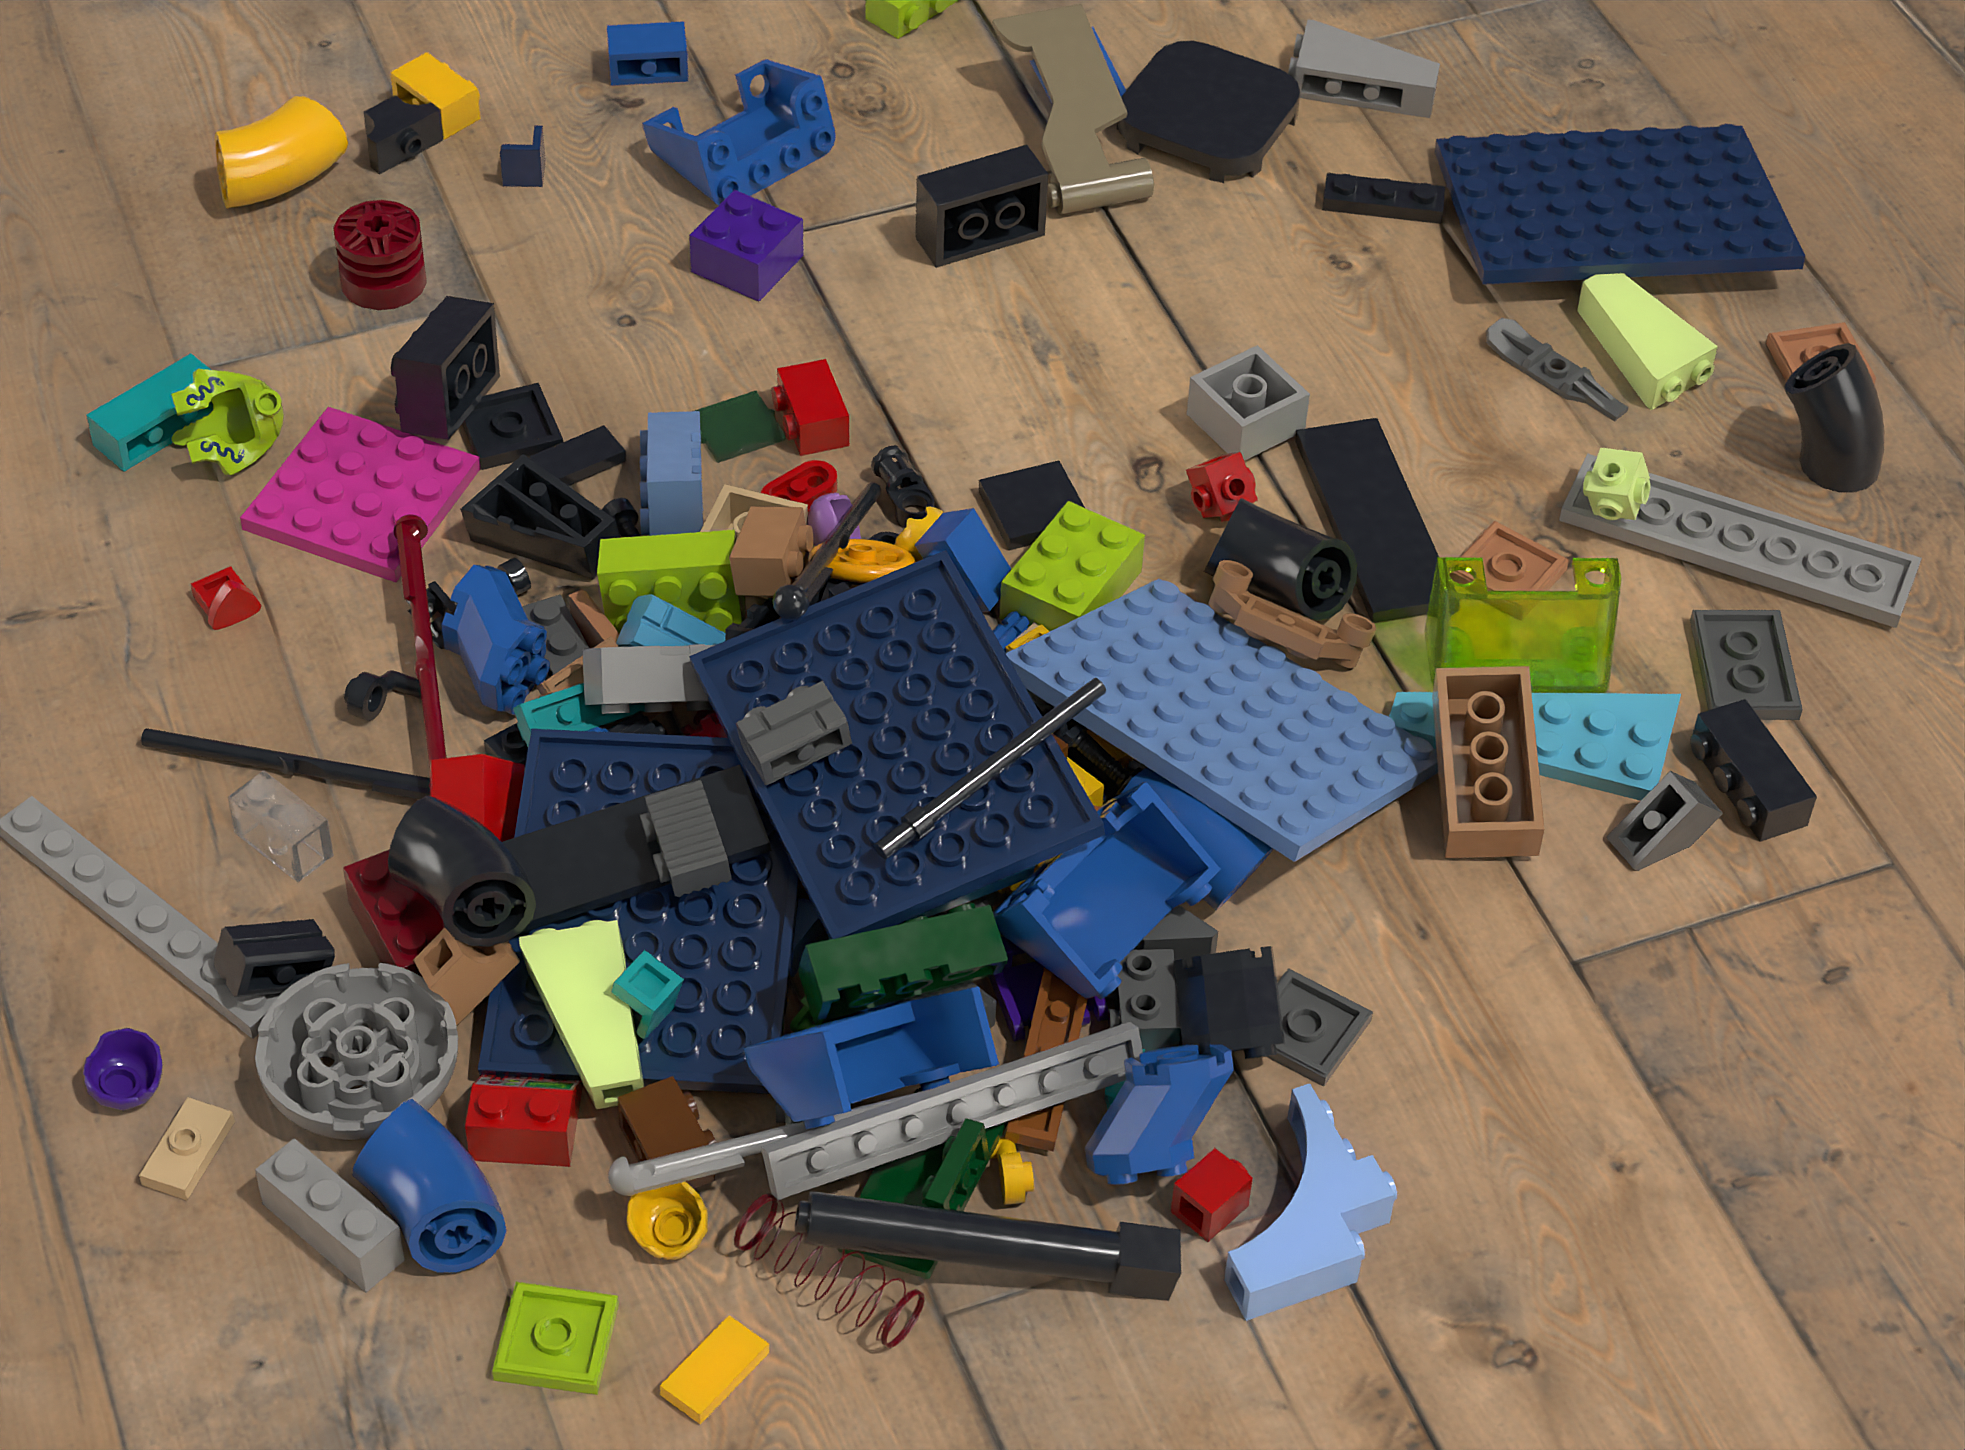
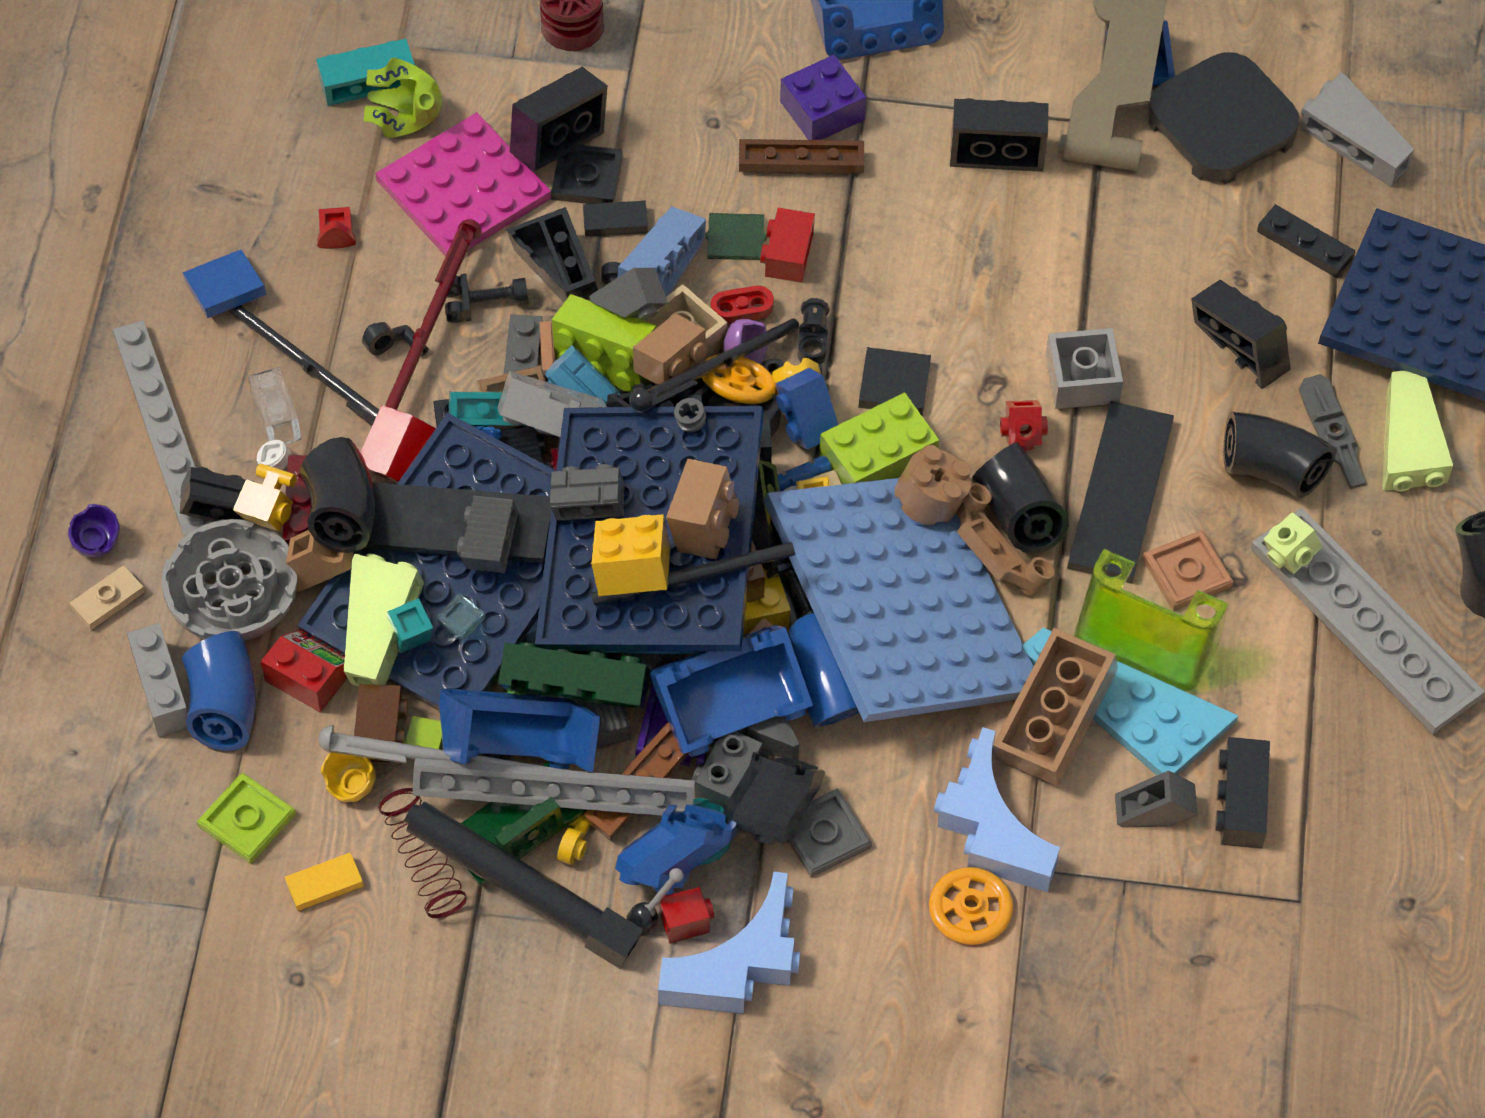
camera: 30 degrees right, 10 degrees up
(117, 712) = (224, 283): none -> blue tile
(313, 885) = (274, 454): none -> white tile
(356, 928) = (266, 502): none -> brick
(495, 639) = (474, 334): blue brick -> none
(686, 503) = (633, 294): none -> dark grey slope
(703, 958) = (460, 617): none -> clear light blue plate
(730, 1122) = (424, 733): none -> lime tile
(759, 313) = (801, 156): none -> reddish brown plate
(861, 583) = (684, 422): none -> dark grey bush
(907, 772) = (631, 555): none -> yellow brick
(967, 680) = (702, 509): none -> medium nougat brick
(1163, 1211) = (644, 913): none -> hinge
(1178, 581) = (933, 486): none -> medium nougat brick
(1393, 300) = (1245, 328): none -> black wedge
(1516, 406) = (1276, 452): none -> black brick
(1518, 940) = (994, 834): none -> light blue arch
(1550, 1000) = (962, 931): none -> light orange plate
(1748, 659) = (1304, 713): dark grey tile -> none

